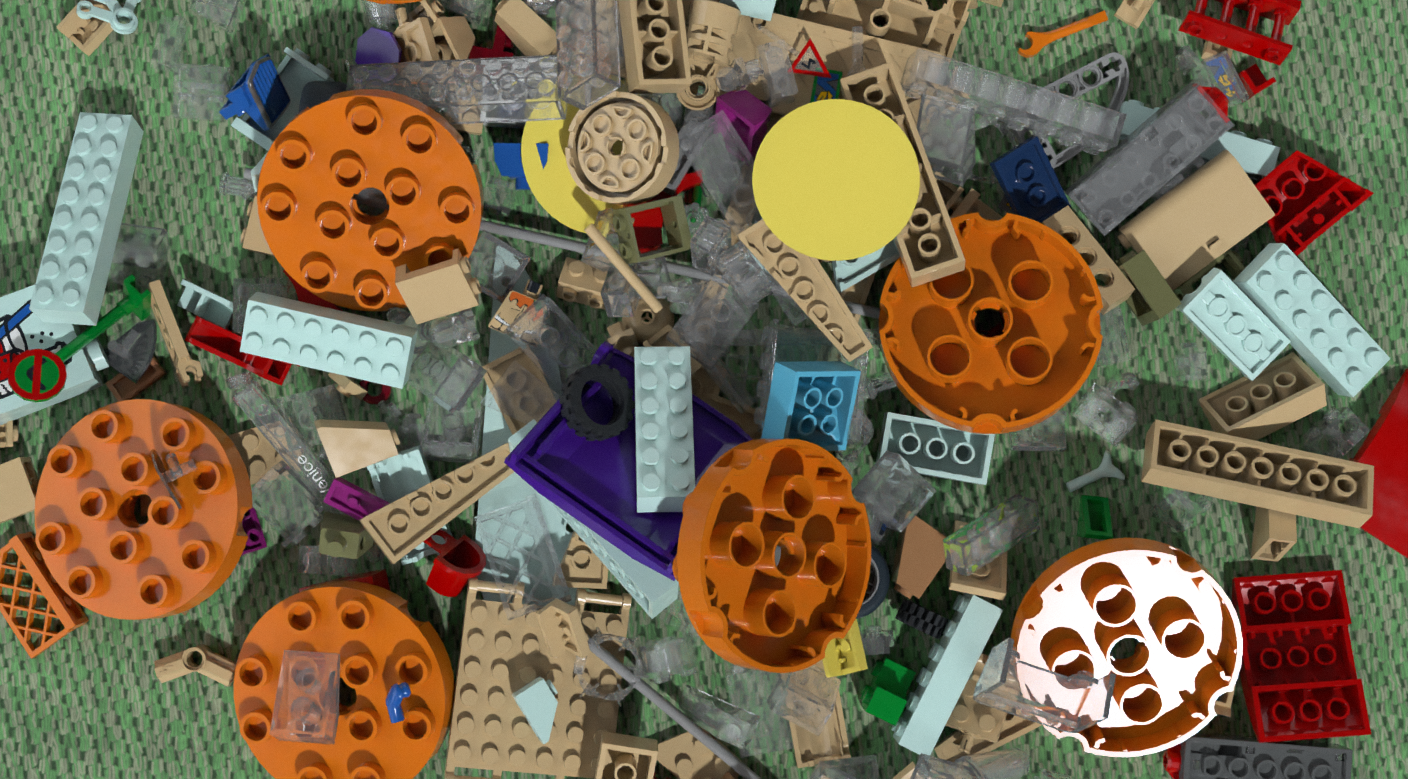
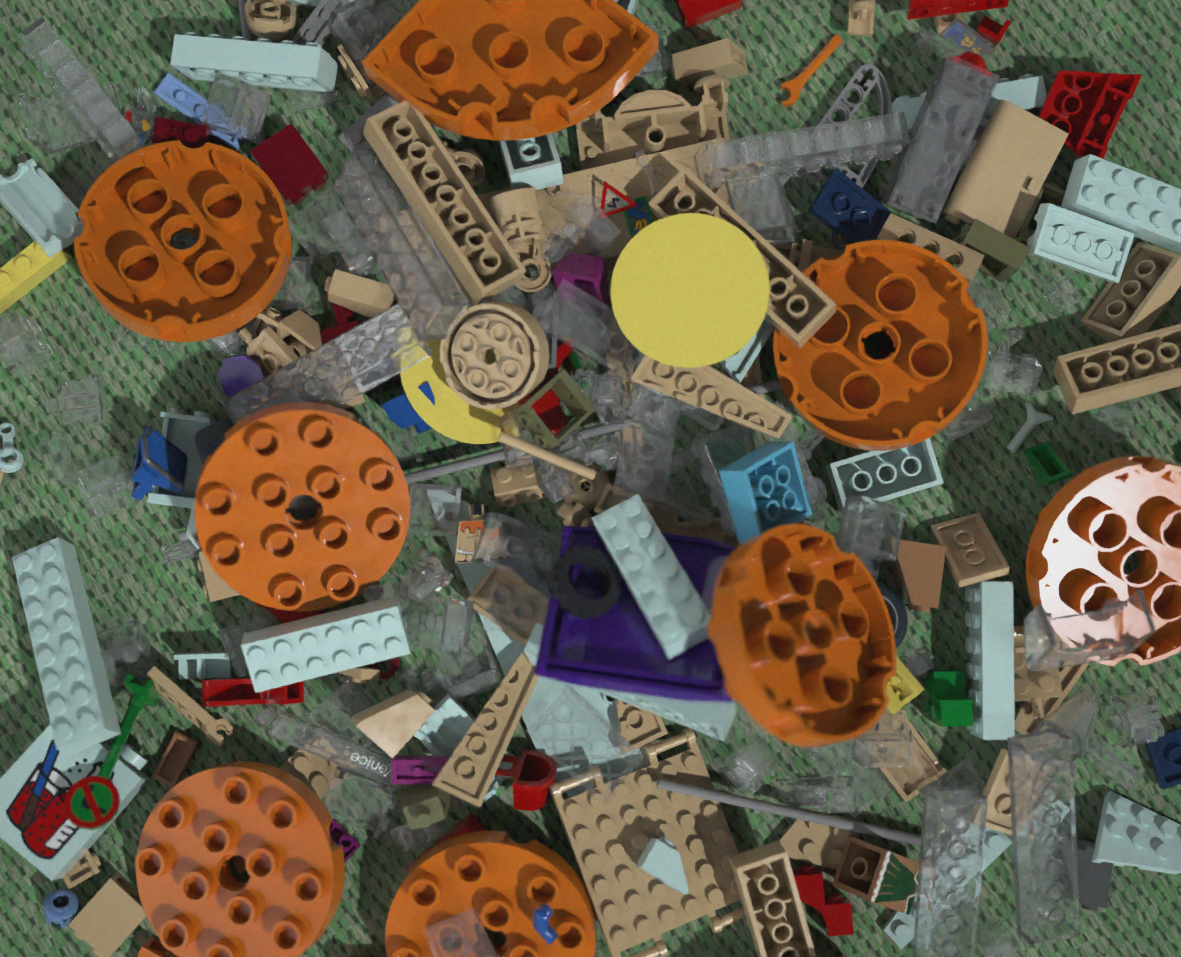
camera: 30 degrees left, 0 degrees up
(133, 349) = (160, 736): clear shield -> none
(175, 471) = (253, 823): clear shield -> none
(438, 288) = (398, 552): tan panel -> none
(563, 629) = (652, 788): tan bracket -> none
(579, 668) = (679, 805): clear piece -> none
(921, 618) = (946, 623): black tyre -> none
(991, 534) = (970, 523): clear brick -> none

